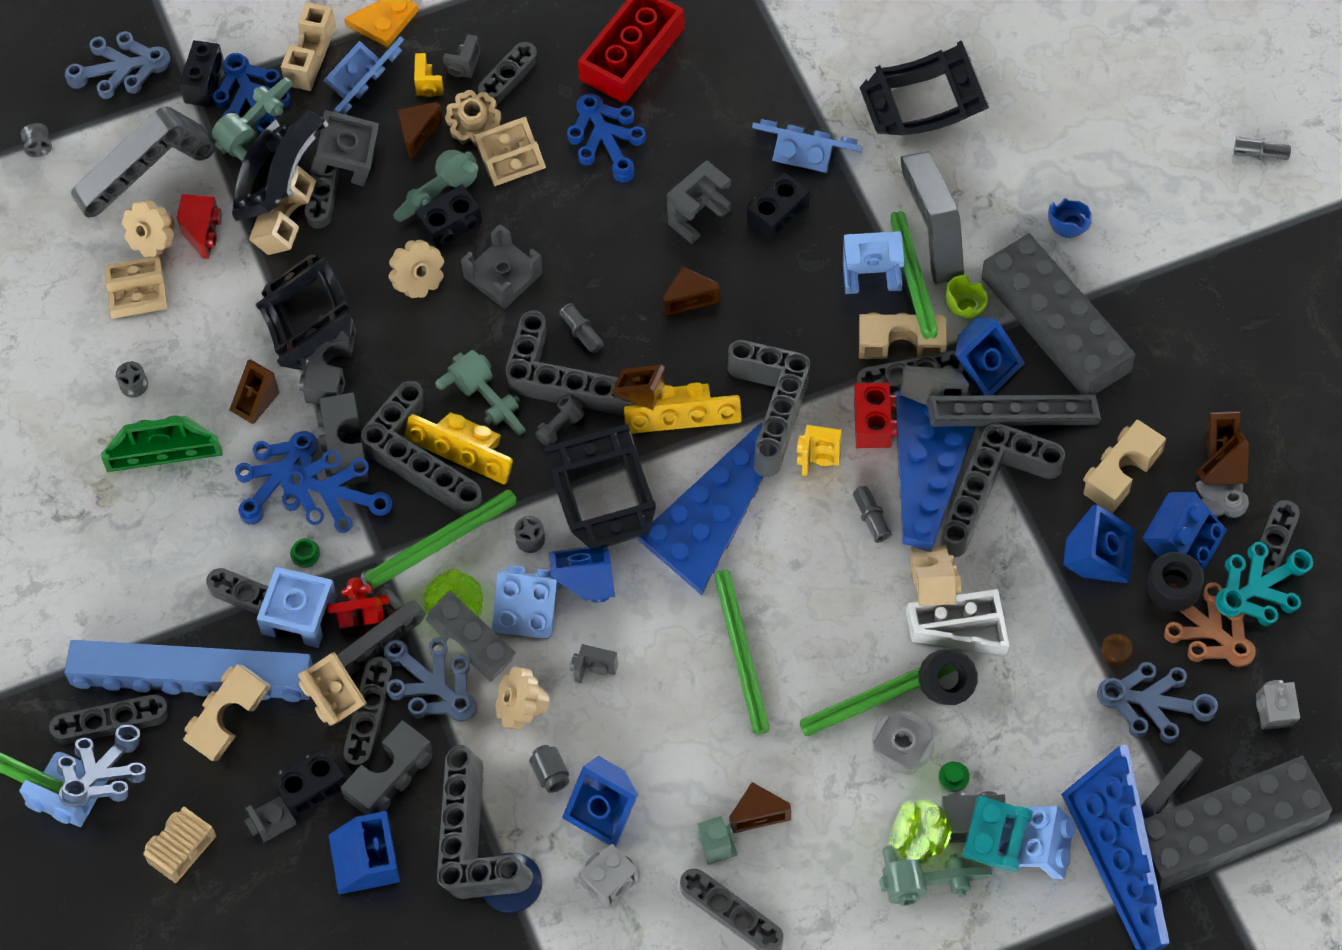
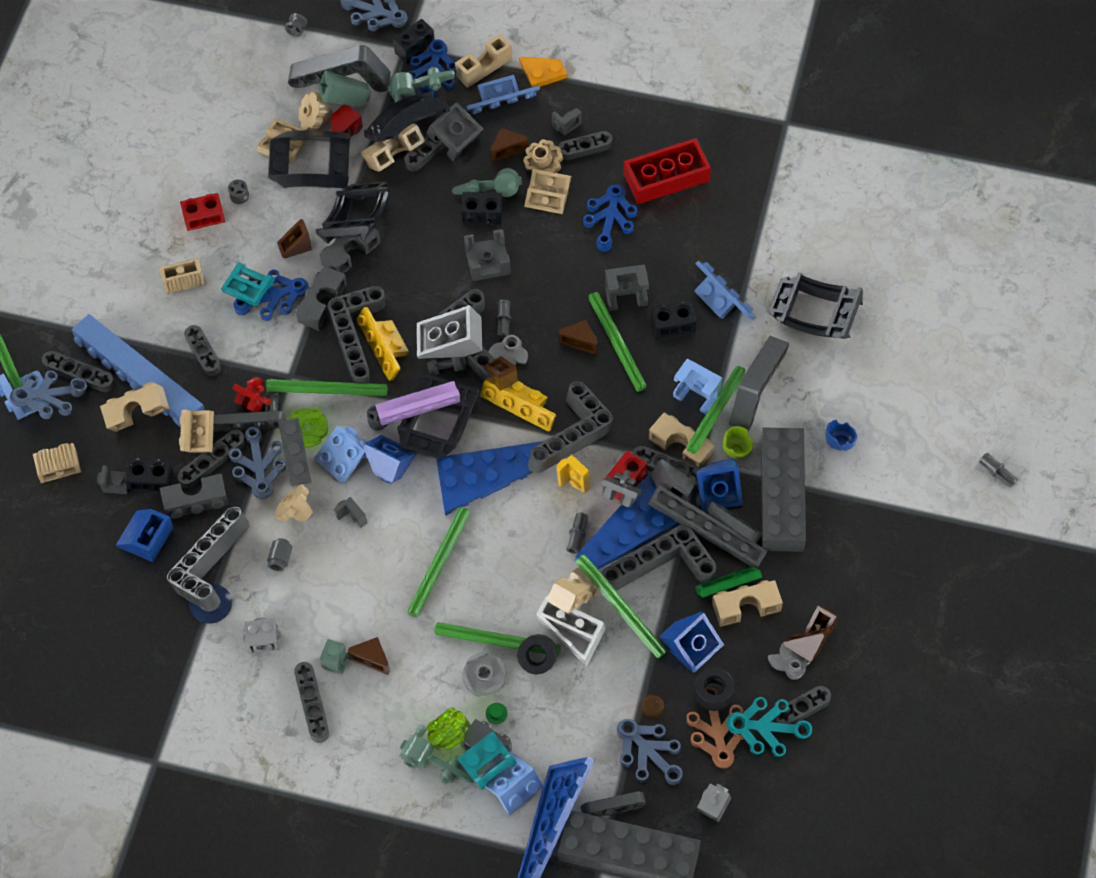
camera: 35 degrees right, 0 degrees up
(101, 426) = (202, 215): none -> red brick
(149, 521) = (182, 276): none -> tan brick
(159, 443) = (221, 235): green wedge -> none
(167, 179) = (343, 90): none -> sand green slope
(229, 268) = (337, 164): none -> black wedge
(241, 487) = (246, 289): none -> teal plate
(296, 605) = (219, 372): light blue panel -> none
(305, 553) = (250, 348): green plate -> none
(330, 489) = (289, 322): blue plant -> none
(416, 268) = (437, 226): tan plant -> none
(425, 82) = (534, 119): yellow bracket -> none
(471, 374) = (419, 307): sand green piece -> none
(544, 382) = (450, 334): none -> light grey slope
(571, 484) = (418, 403): none -> lavender fence
(601, 800) = (291, 590): blue slope -> none
(628, 358) = (513, 354): none -> light grey plate
(733, 271) = (617, 342): none -> bright green axle
(877, 431) = (613, 485): none -> dark grey hips
(996, 559) = (620, 606): none -> bright green axle
(1035, 386) = (734, 522): none -> dark grey beam
(1084, 456) = (728, 581): none -> green tile
(1185, 527) = (749, 666): blue slope -> none

